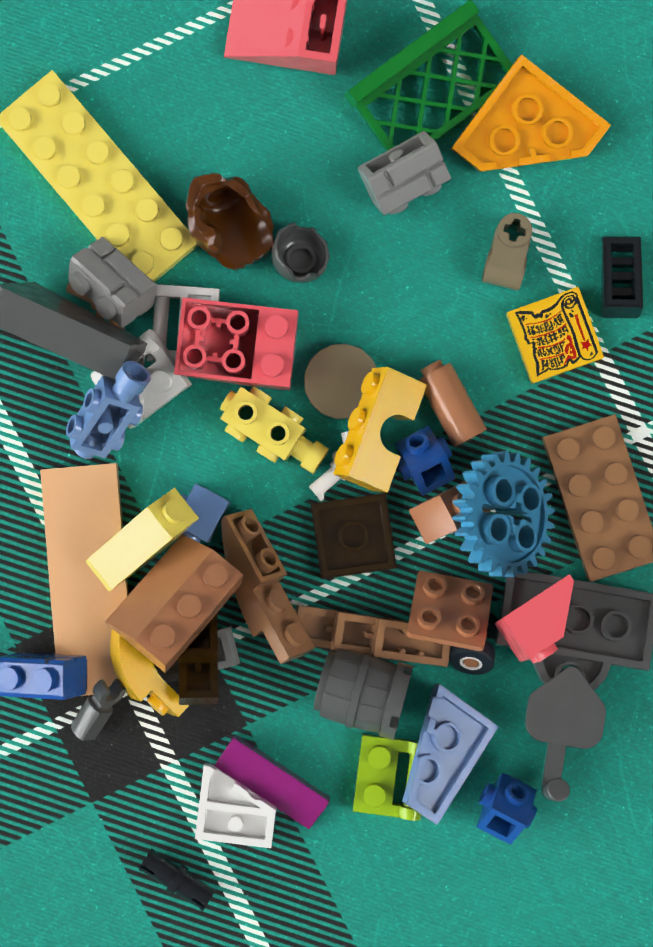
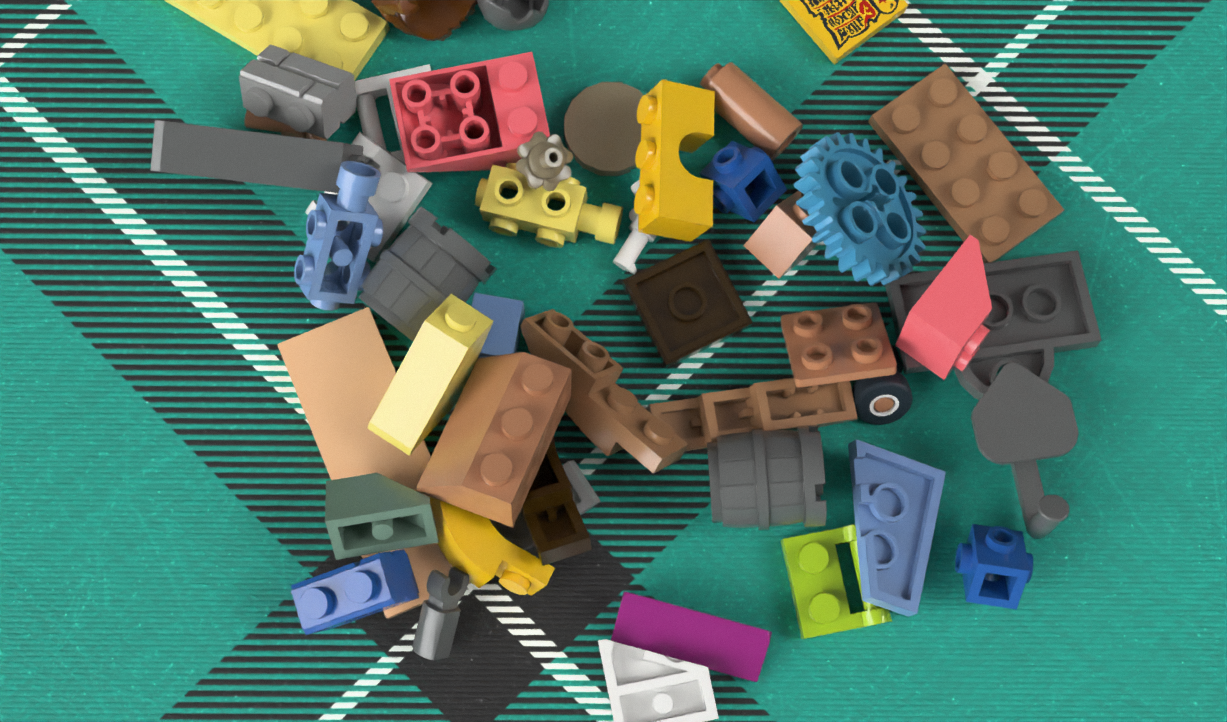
camera: 20 degrees left, 10 degrees down
(70, 628) = (376, 516): none -> sand green slope
(161, 458) = (422, 272): none -> dark grey piece
(278, 401) = (544, 161): none -> dark tan plant

